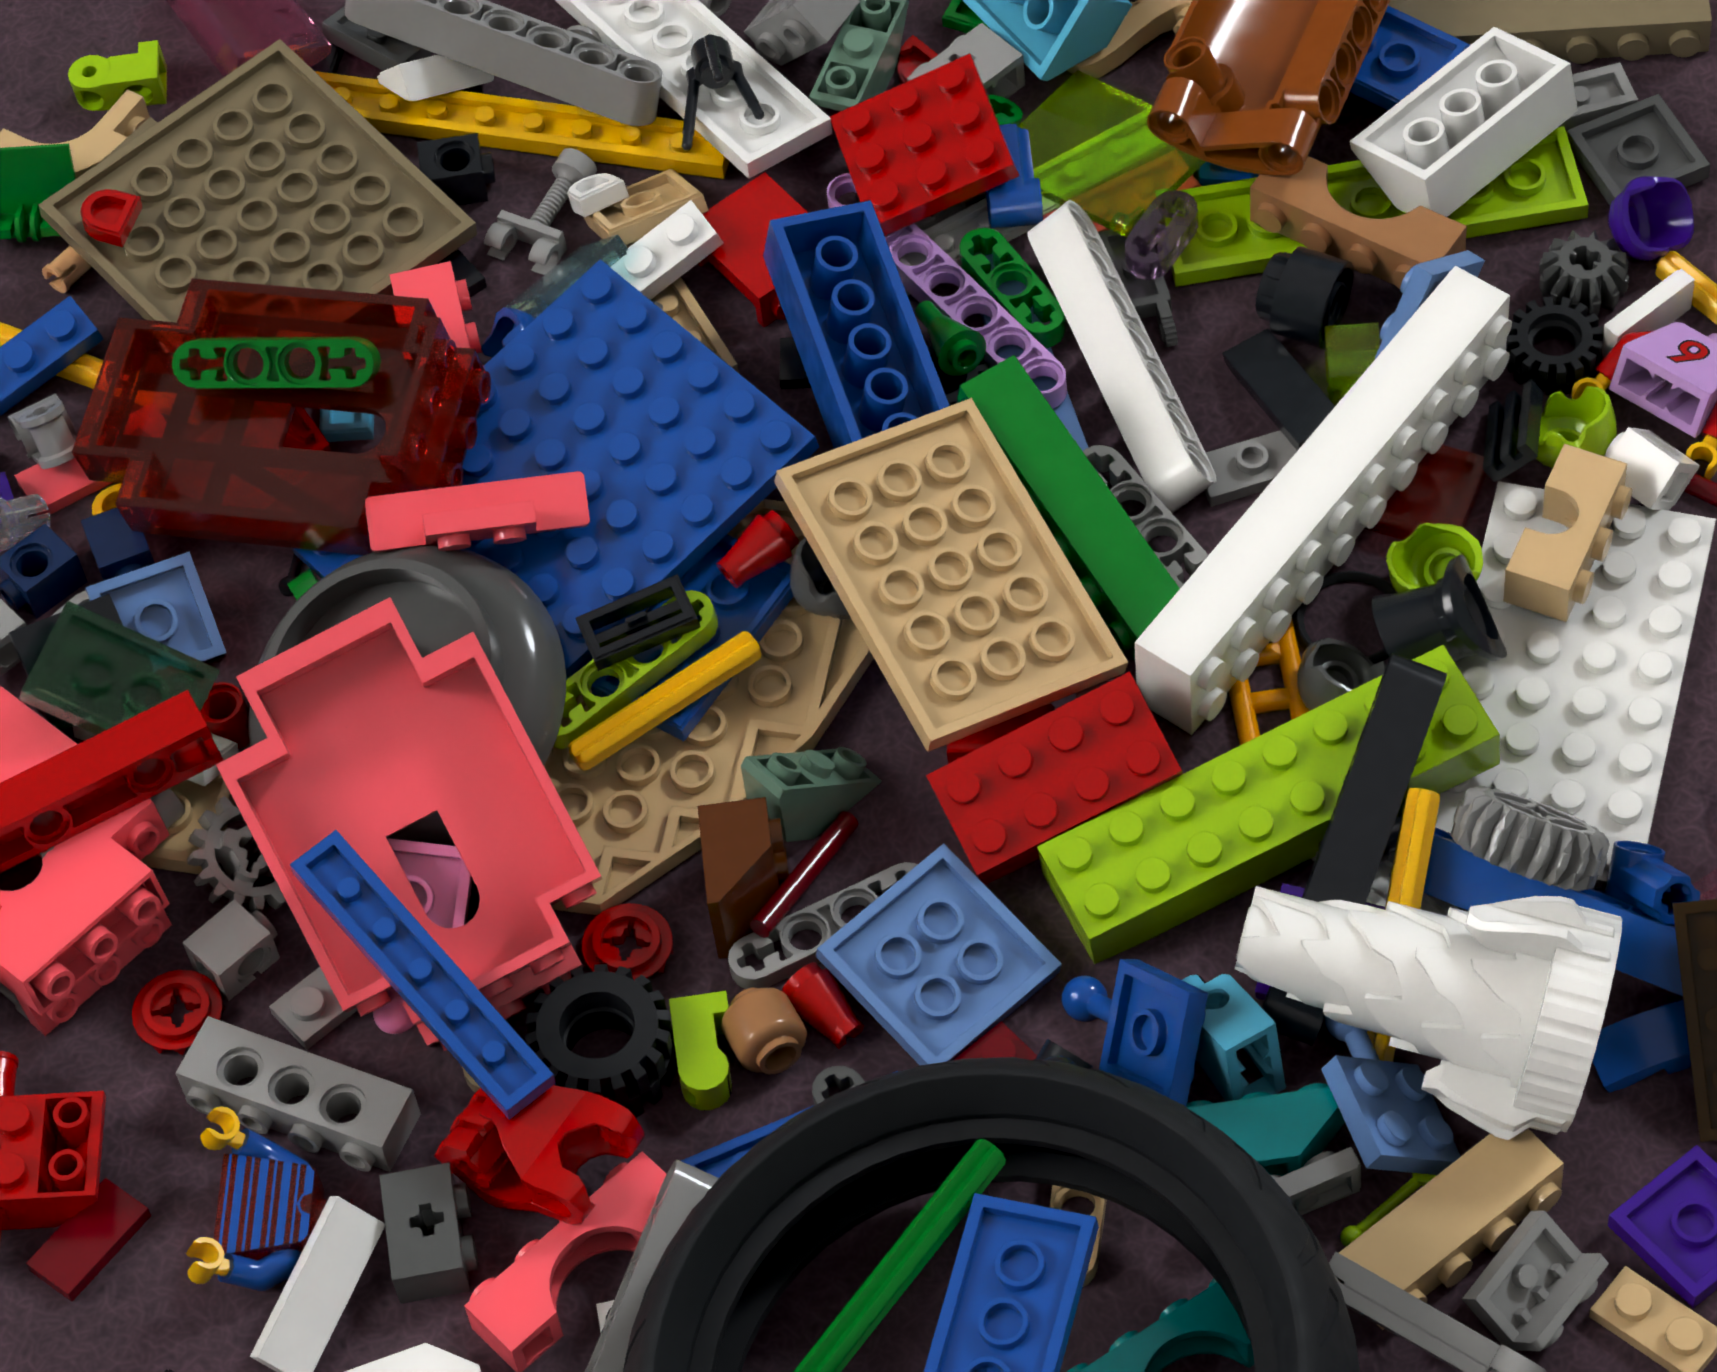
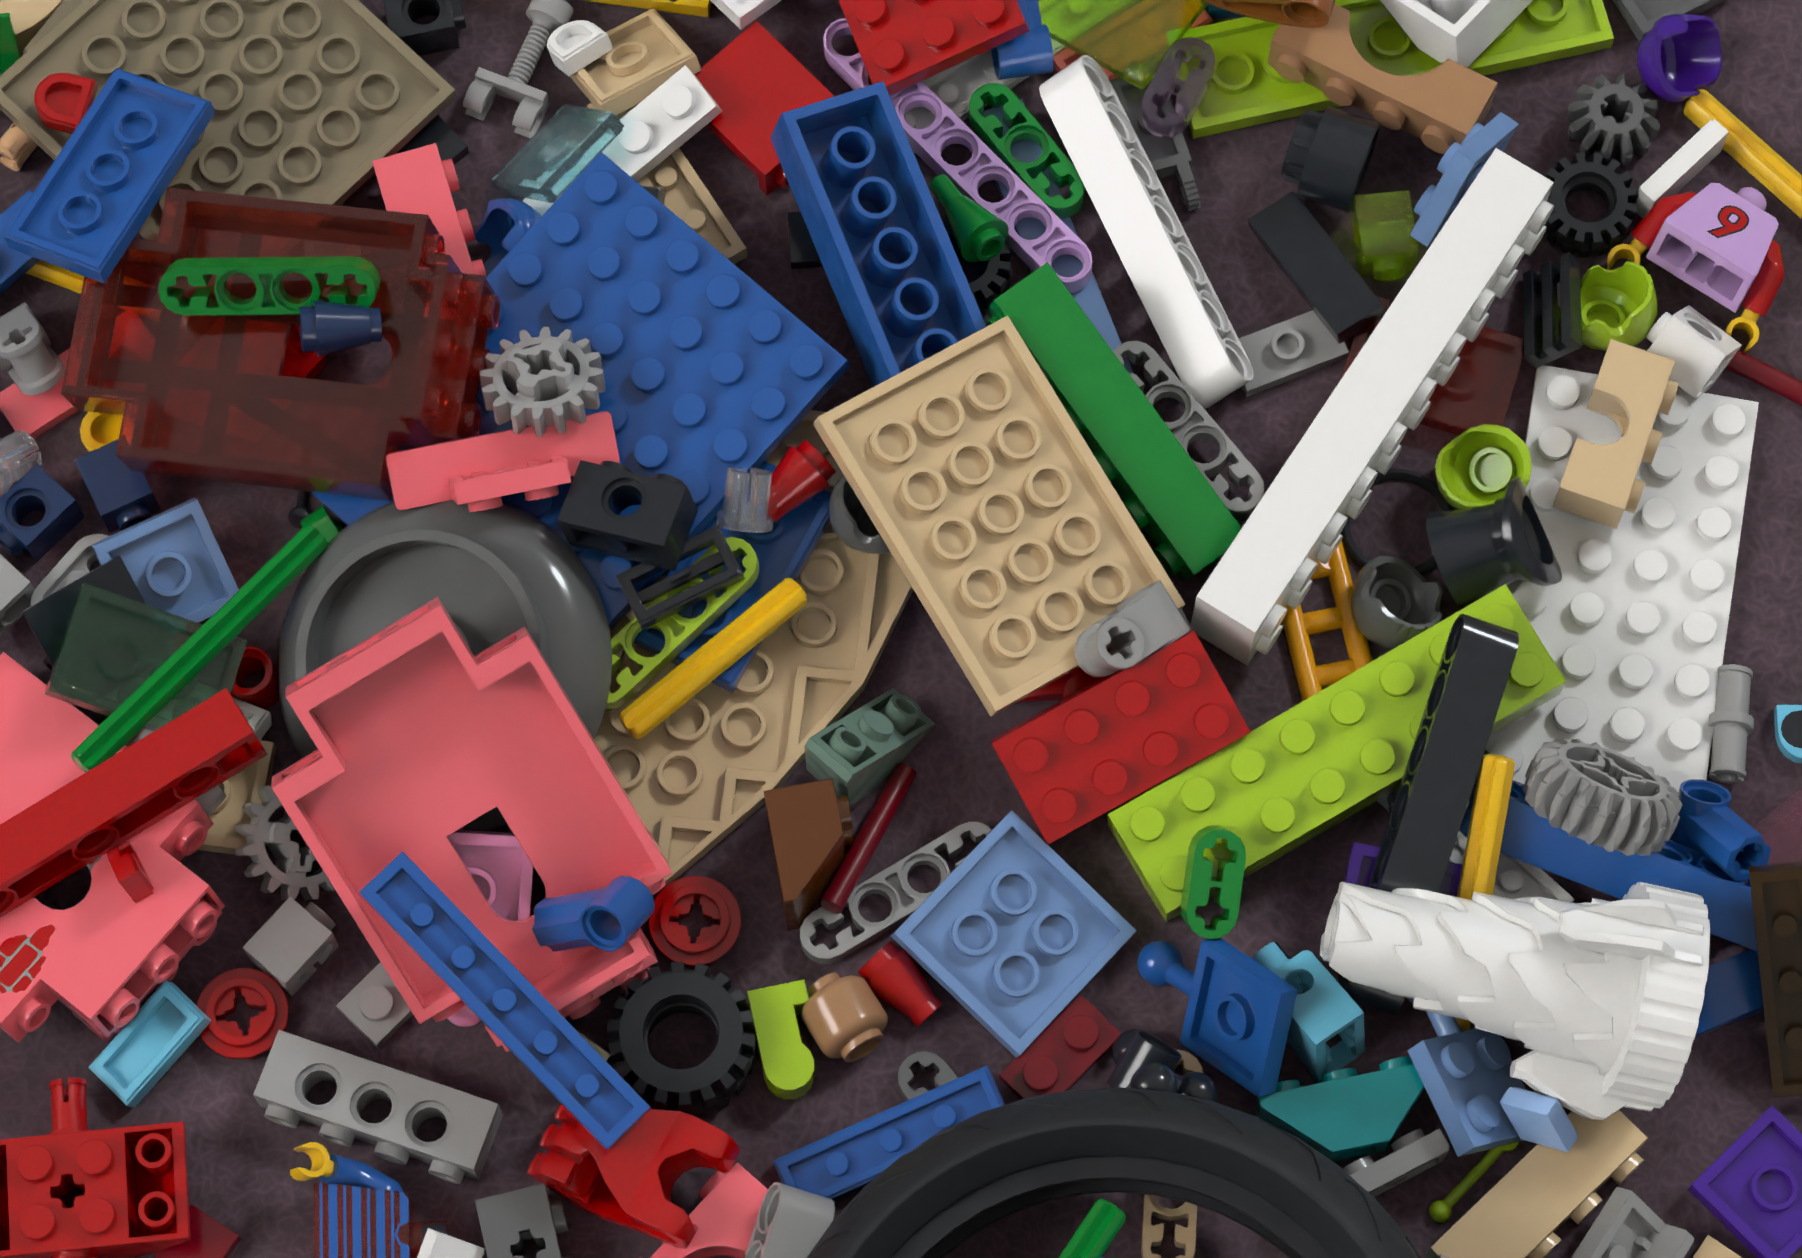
camera: 10 degrees left, 15 degrees up
(78, 854) = (130, 872): none -> red tile
(84, 1032) = (149, 1044): none -> medium azure tile
(140, 271) = (109, 175): none -> blue tile
(175, 664) = (200, 649): none -> green axle
(334, 395) = (337, 327): none -> dark blue cone
(519, 909) = (594, 917): none -> blue piece
(521, 443) = (542, 381): none -> light grey gear
(590, 559) = (649, 535): none -> black brick
(705, 567) = (746, 501): none -> clear bush
(1066, 673) = (1135, 630): none -> light grey piece
(1149, 906) = (1199, 880): none -> green beam
(1450, 1134) = (1539, 1119): none -> light blue tile
(1674, 799) = (1731, 724): none -> light grey pin

